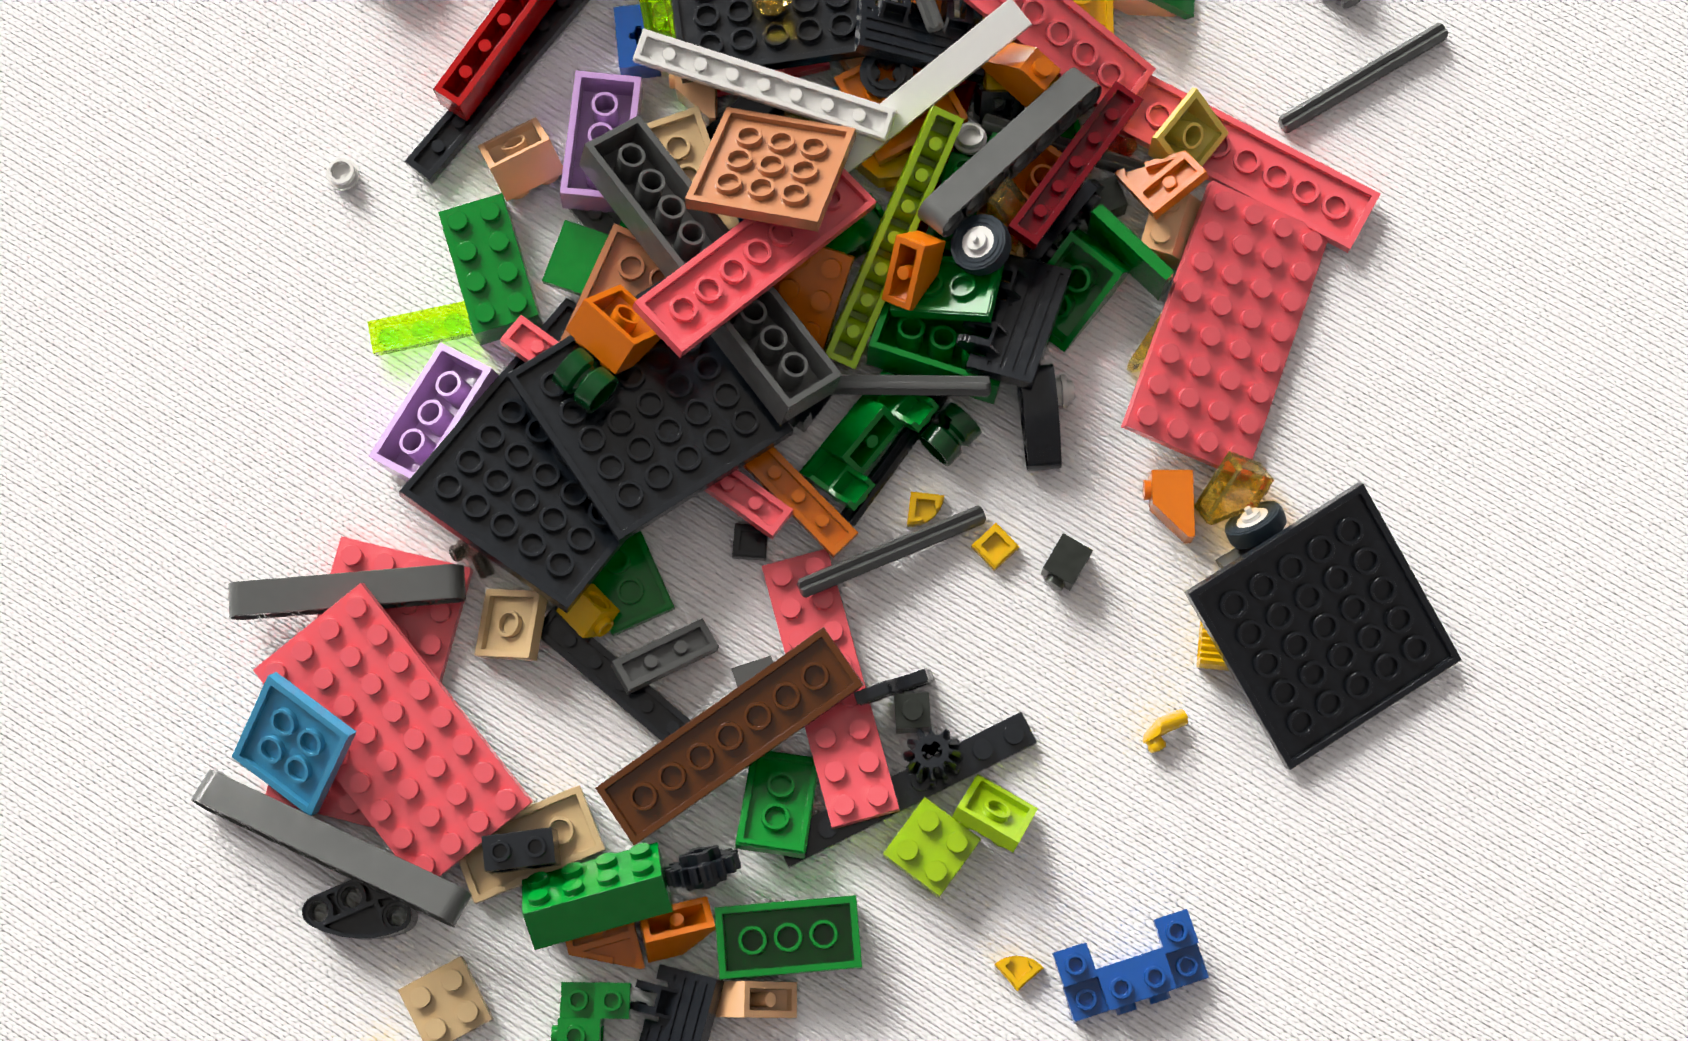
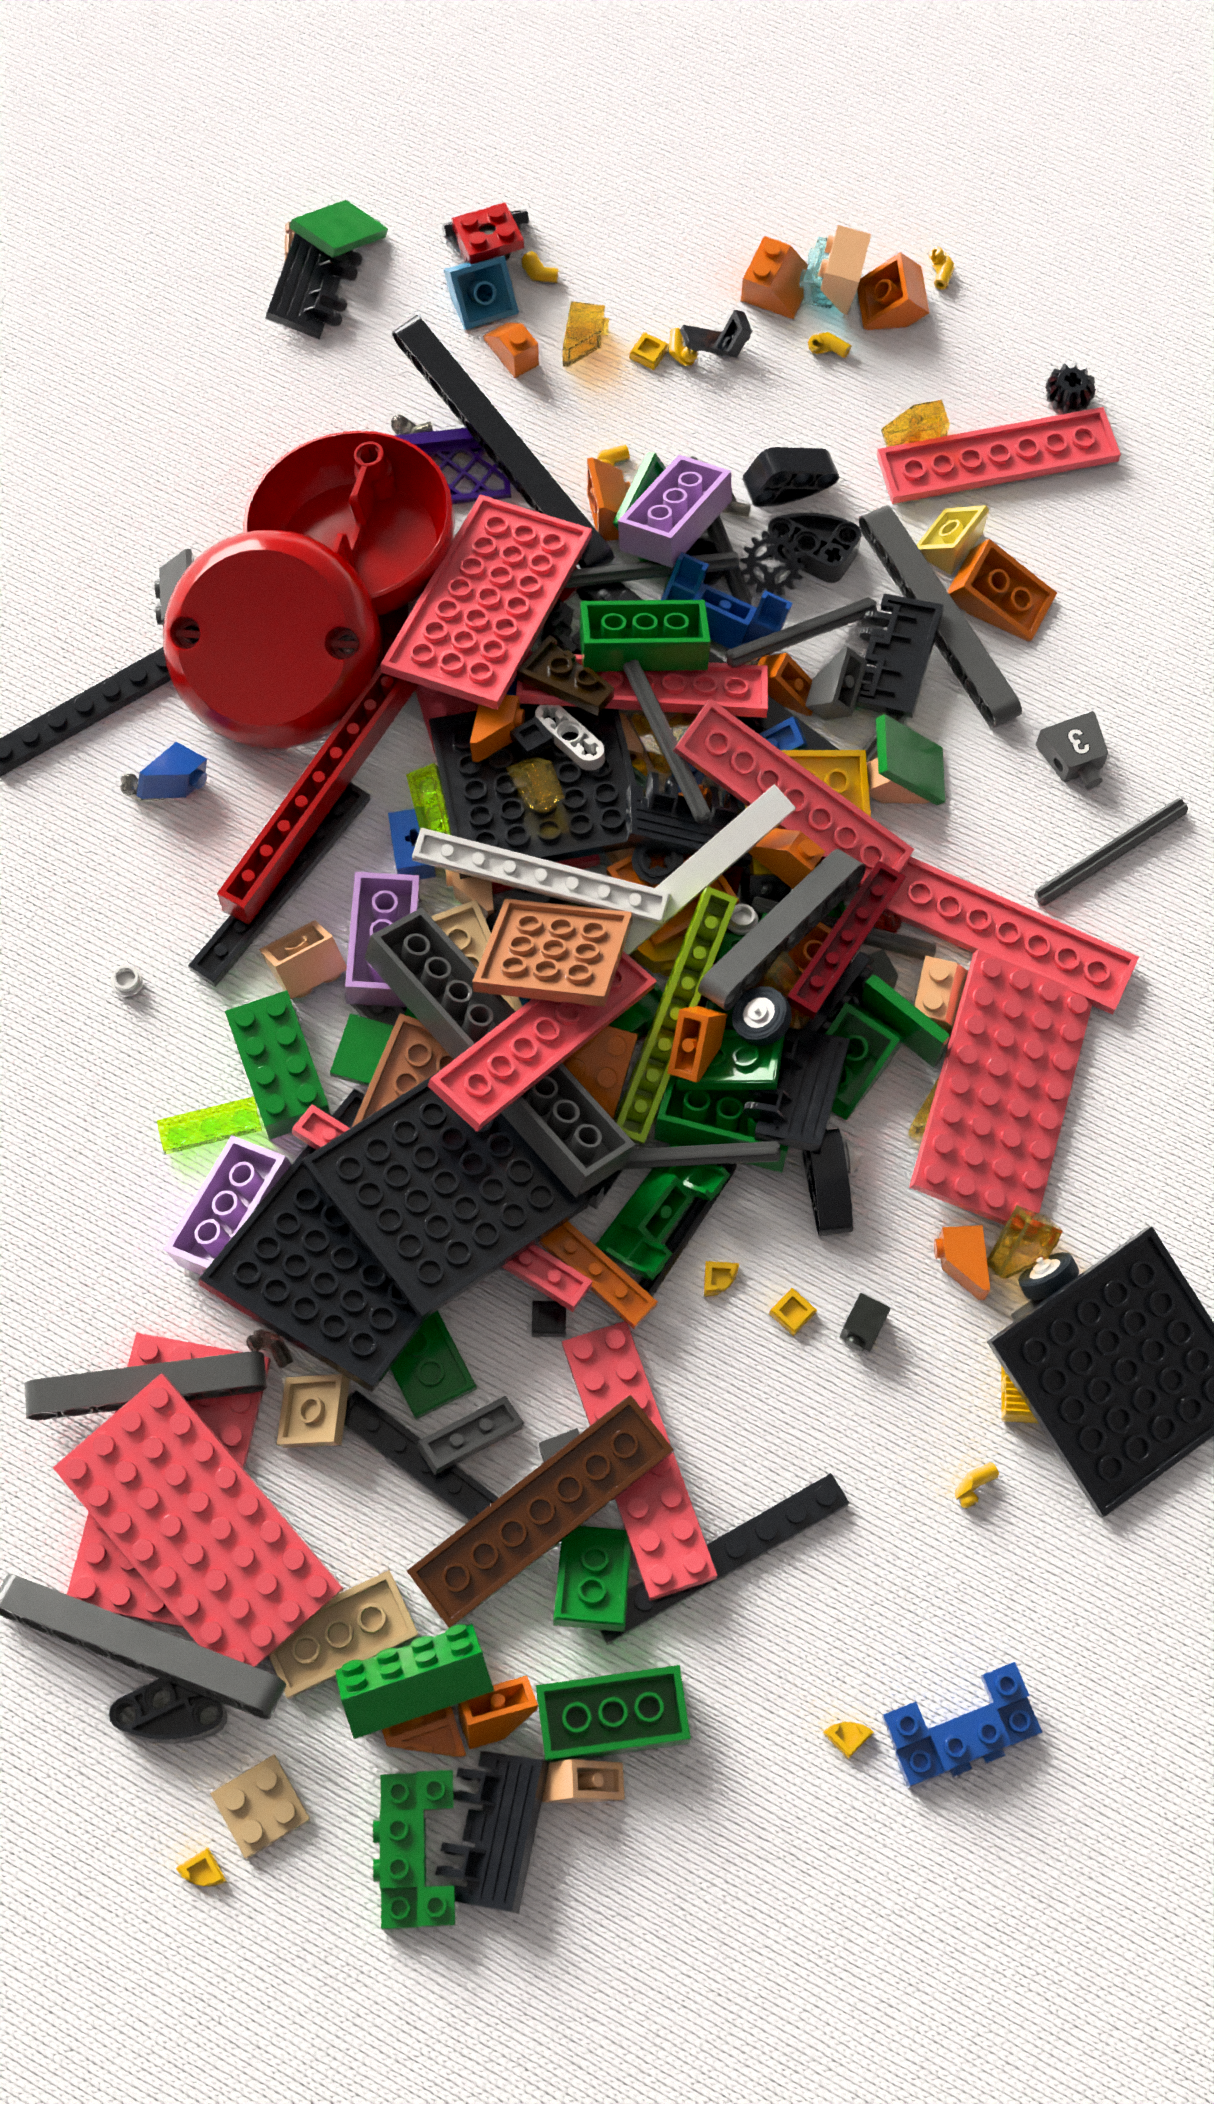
camera: 10 degrees left, 10 degrees down
(293, 744) = (97, 1540): dark azure plate -> none
(521, 850) = (334, 1638): black brick -> none
(589, 384) = (377, 1157): dark green wheel -> none
(591, 614) = (394, 1396): yellow brick -> none
(612, 329) = (407, 1111): orange slope -> none
(702, 868) = (521, 1646): black gear -> none
(891, 551) = (690, 1320): dark grey axle -> none
(894, 686) = (703, 1453): black tile -> none
(912, 712) = (722, 1479): pearl dark grey brick -> none
(931, 847) = (751, 1614): lime brick -> none
(936, 766) = (752, 1530): black gear -> none
(952, 431) = (737, 1206): dark green wheel -> none
(994, 813) = (813, 1575): lime plate -> none
(1163, 181) = (931, 951): wing -> none
(1189, 128) = (950, 910): light yellow slope -> none

